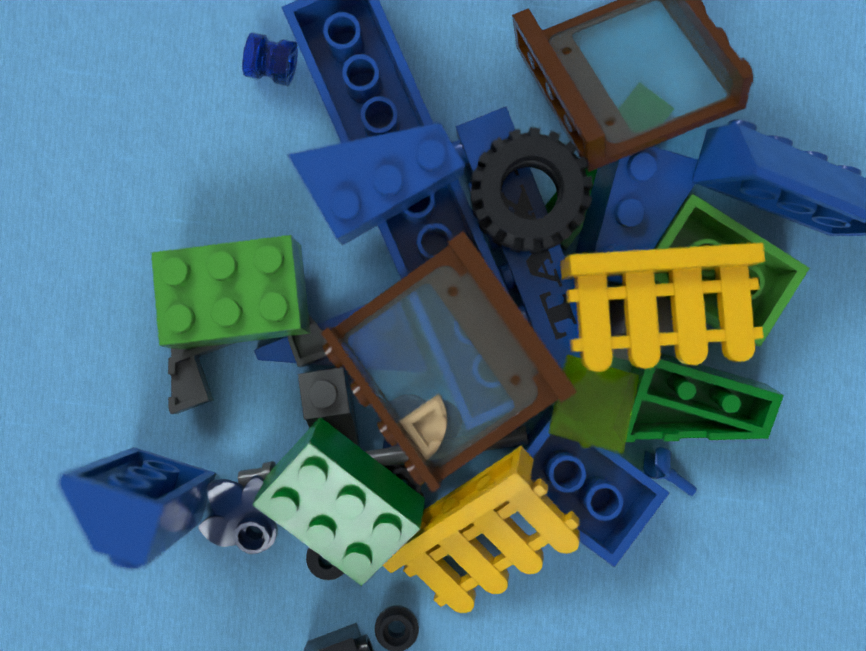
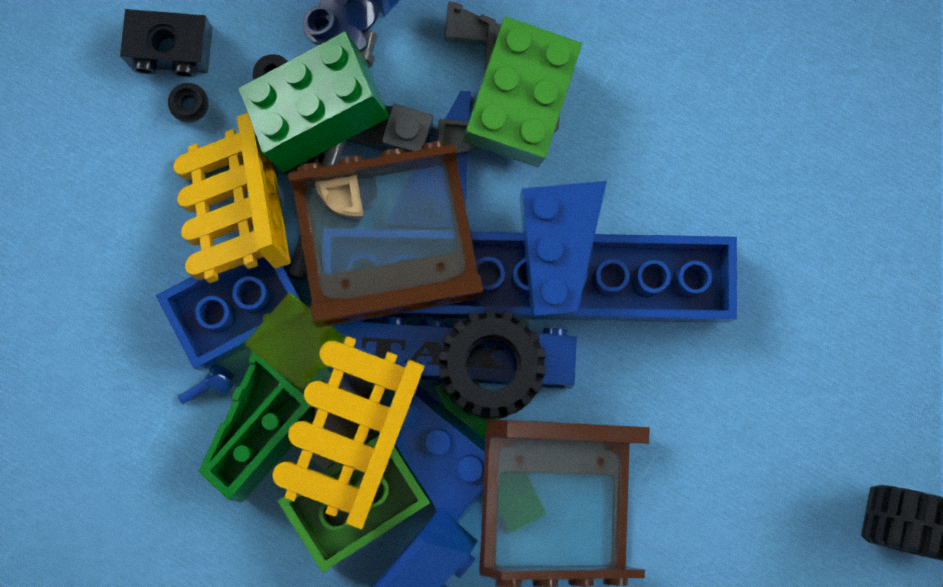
camera: 110 degrees right, 5 degrees down
(269, 59) = (704, 212): clear blue wheel -> none

